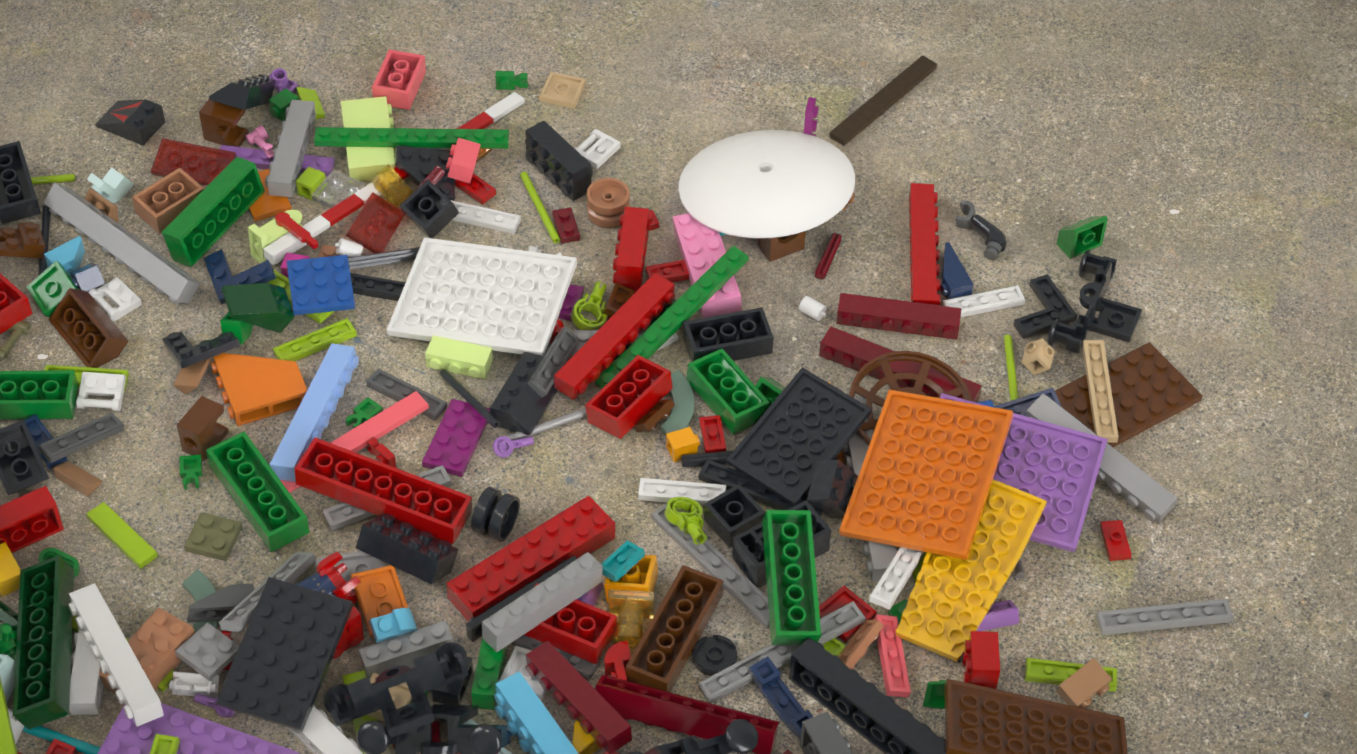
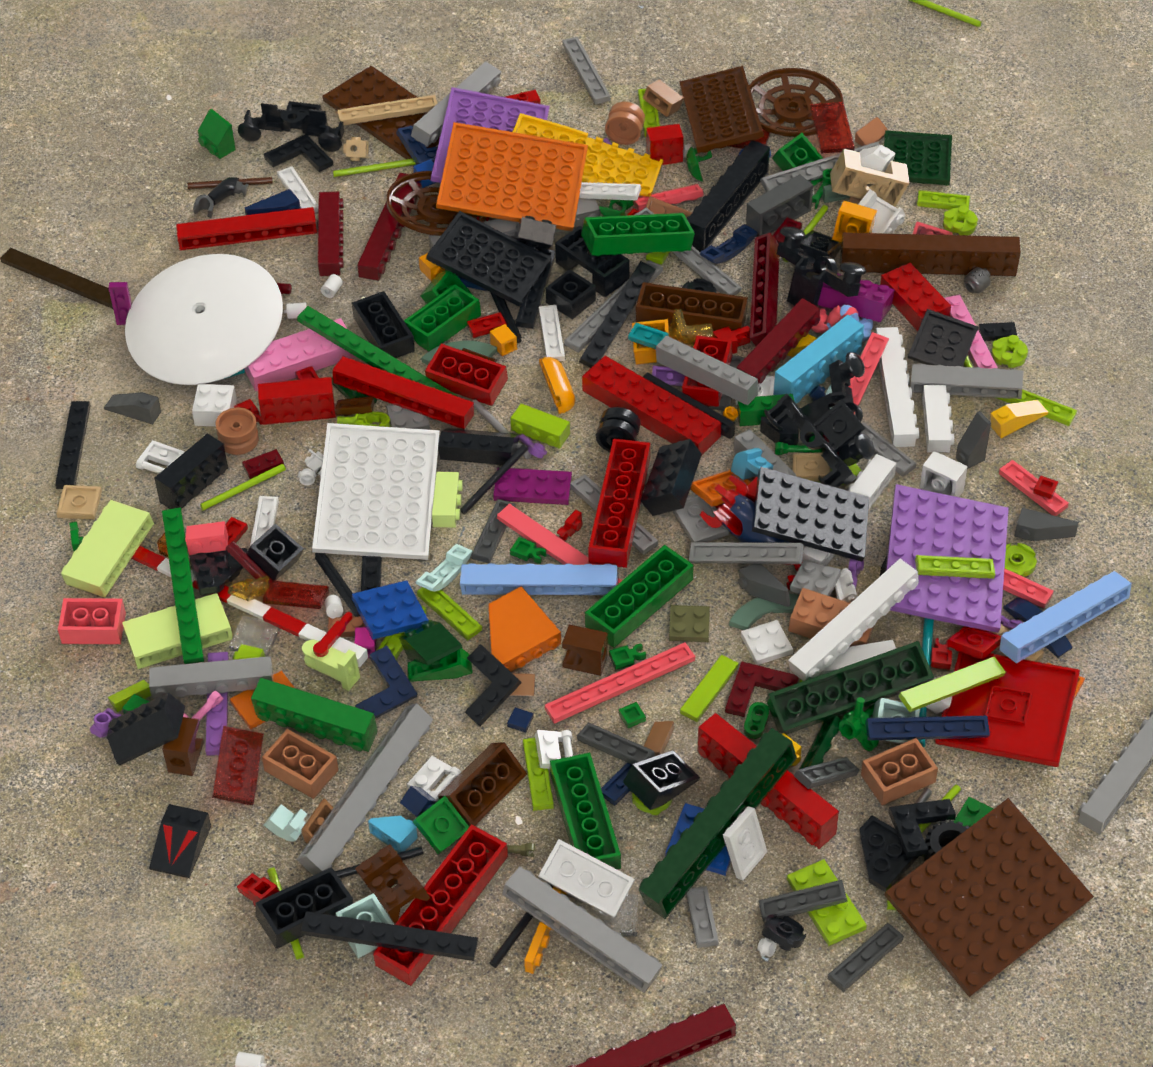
camera: 100 degrees left, 0 degrees up
(48, 161) = (257, 888): none -> red brick
(115, 460) = (632, 715): none -> green plate
(118, 571) = (751, 676): none -> dark red plate
(153, 374) = (520, 719): none -> dark blue tile
(157, 593) = (766, 642): none -> white plate
(160, 461) = (619, 682): none -> coral plate
(353, 335) = (447, 570): none -> light aqua slope
(484, 96) = (107, 548): none -> yellowish green brick
(537, 454) = (540, 426): none -> lime brick
(553, 361) = (443, 426): dark grey tile -> none
(602, 483) = (558, 384): none -> light orange brick
(640, 91) = (73, 444): none -> black plate
(654, 191) = (211, 402): none -> white brick
(673, 136) = (136, 406): none -> dark grey slope
(687, 555) = (617, 315): none -> black plate
(690, 522) = (585, 317): lime pin -> none
(781, 274) = (294, 309): none -> white piece
(865, 583) = (612, 212): none -> green piece
(1009, 247) = (212, 184): none -> reddish brown piece
(1030, 626) = (625, 123): none -> nougat wheel

